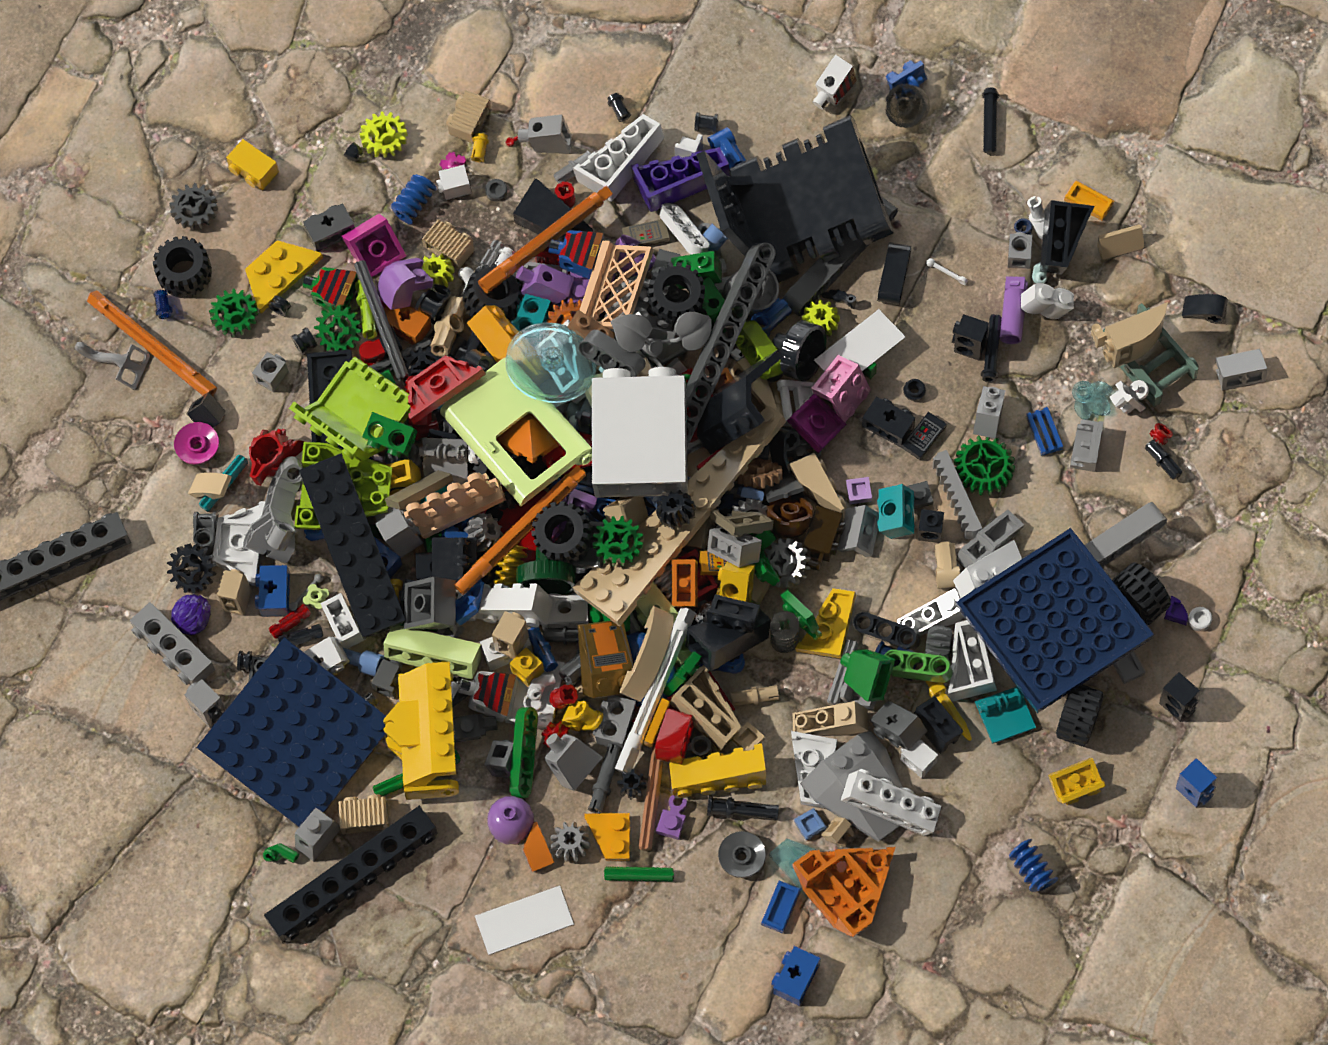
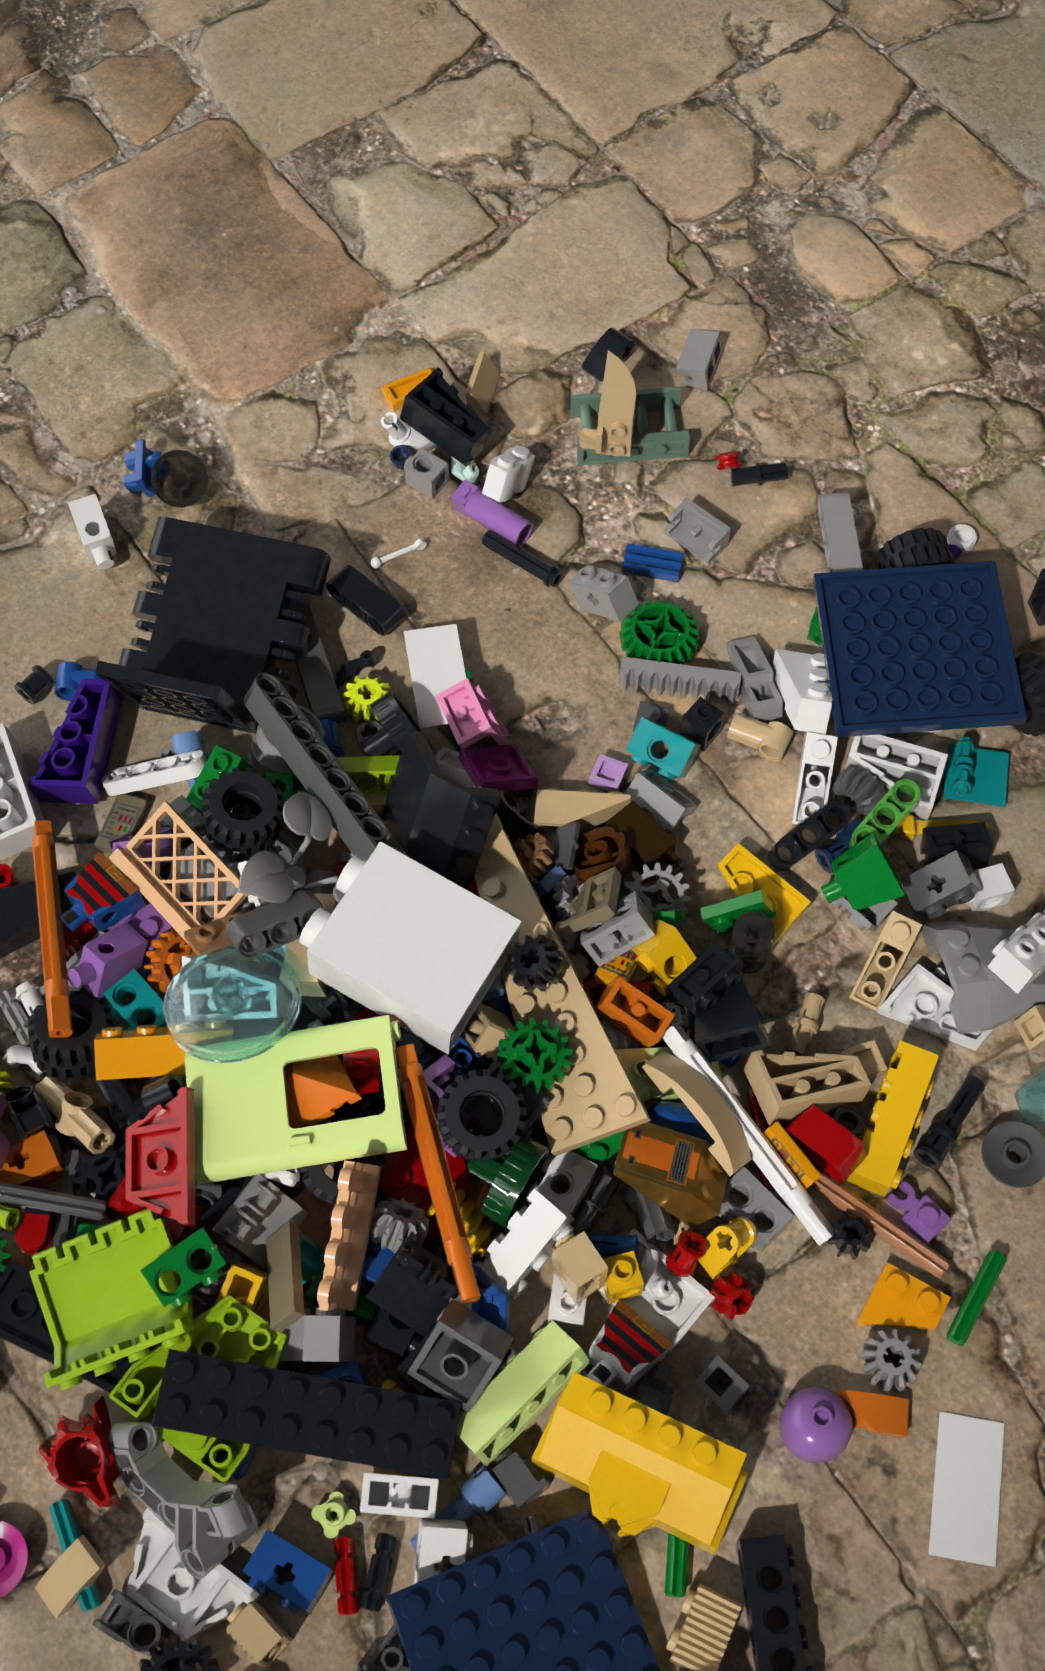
camera: 65 degrees left, 5 degrees down
(294, 605) = (326, 1556): light grey hinge -> none
(525, 718) = (735, 1351): green beam -> none
(570, 760) = (782, 1295): light grey torso -> none
(602, 787) = (833, 1277): dark grey pin -> none
(683, 673) = (746, 1082): green plate -> none
(688, 146) = (50, 717): white panel -> none
(810, 824) = (1008, 1055): medium blue tile -> none
(834, 695) = (831, 915): light grey axle -> none
(895, 430) = (543, 699): black brick -> none
(917, 384) = (519, 649): black plate -> none
(924, 435) = (581, 676): black tile -> none
(970, 336) = (500, 563): black brick -> none
(990, 98) = (278, 437): black axle -> none
(1094, 401) = (646, 502): clear light blue plate -> none
(1127, 397) = (671, 458): white hips -> none

